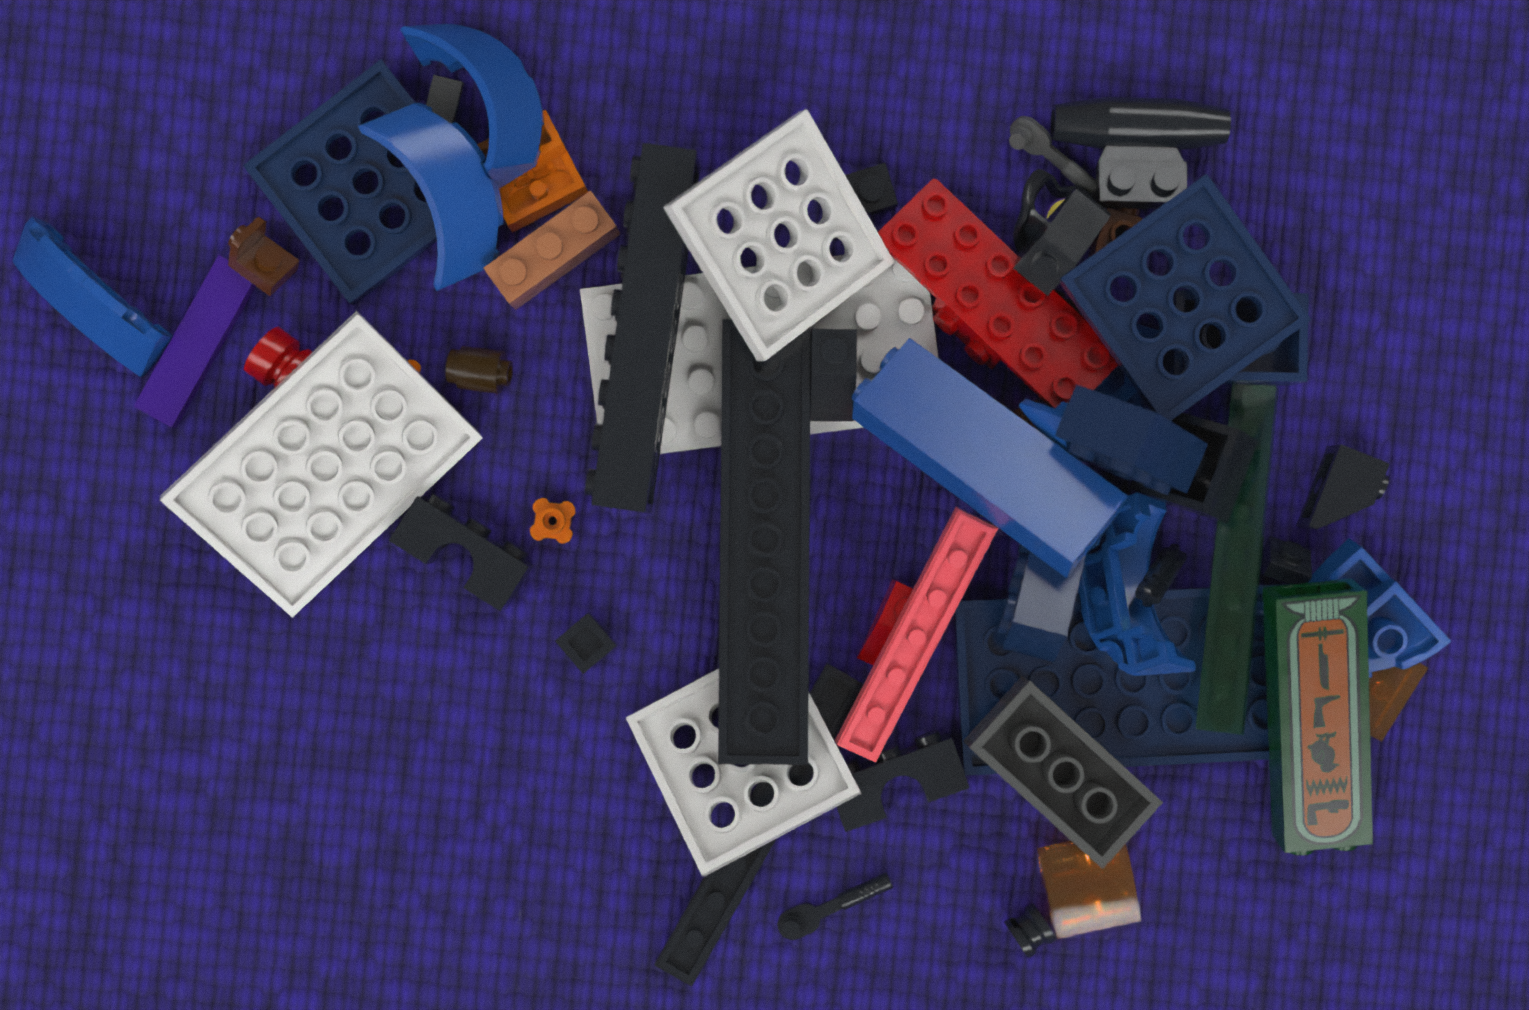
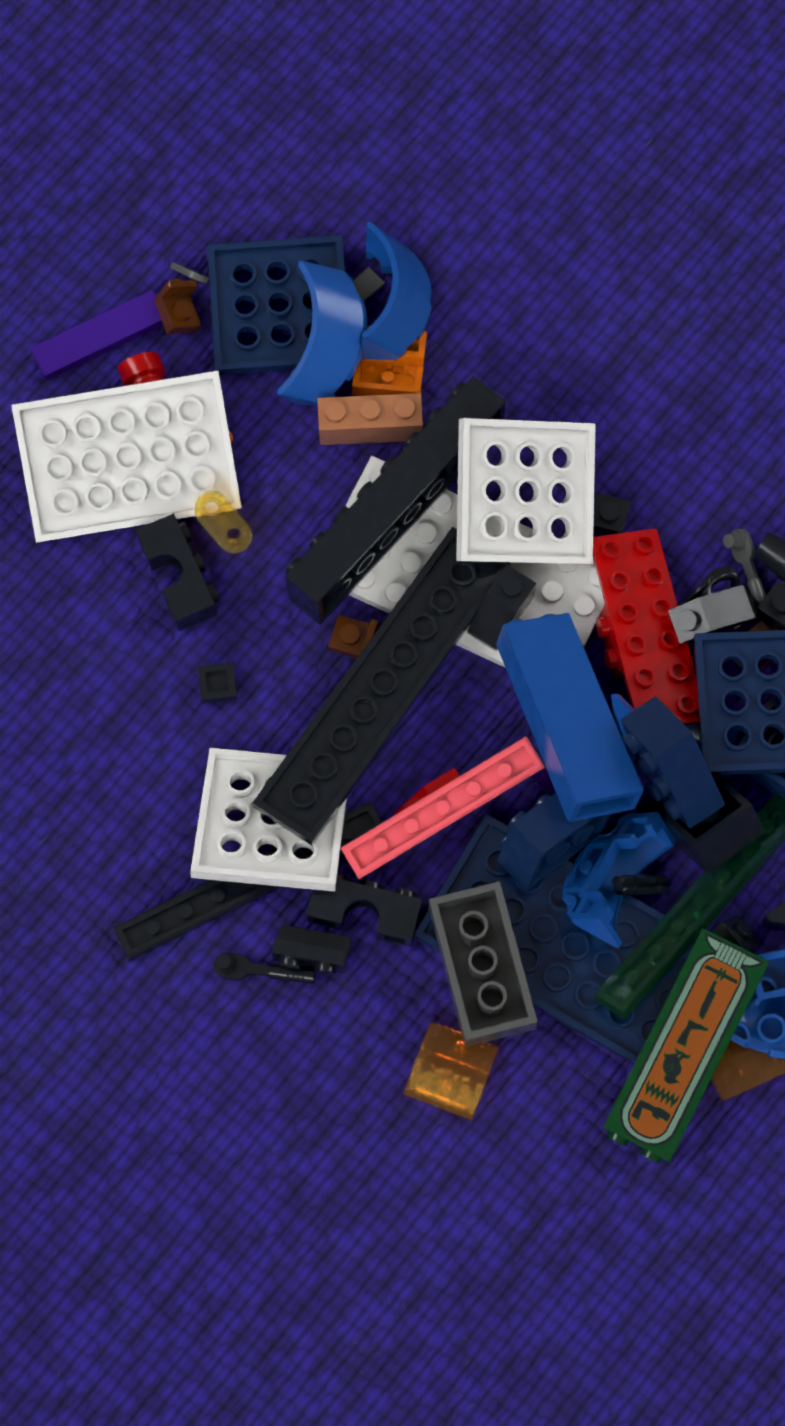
camera: 30 degrees right, 15 degrees down
(87, 299) = (50, 265): blue windscreen -> none
(246, 210) = (189, 272): none -> dark grey piece
(472, 468) = (222, 521): none -> clear yellow plate
(479, 369) = (269, 464): dark brown brick -> none
(562, 512) = (252, 600): orange plate -> none
(693, 499) = (351, 636): none -> reddish brown bracket
(871, 859) = (311, 949): none -> black bracket
(1030, 930) = (389, 1073): black wheel -> none

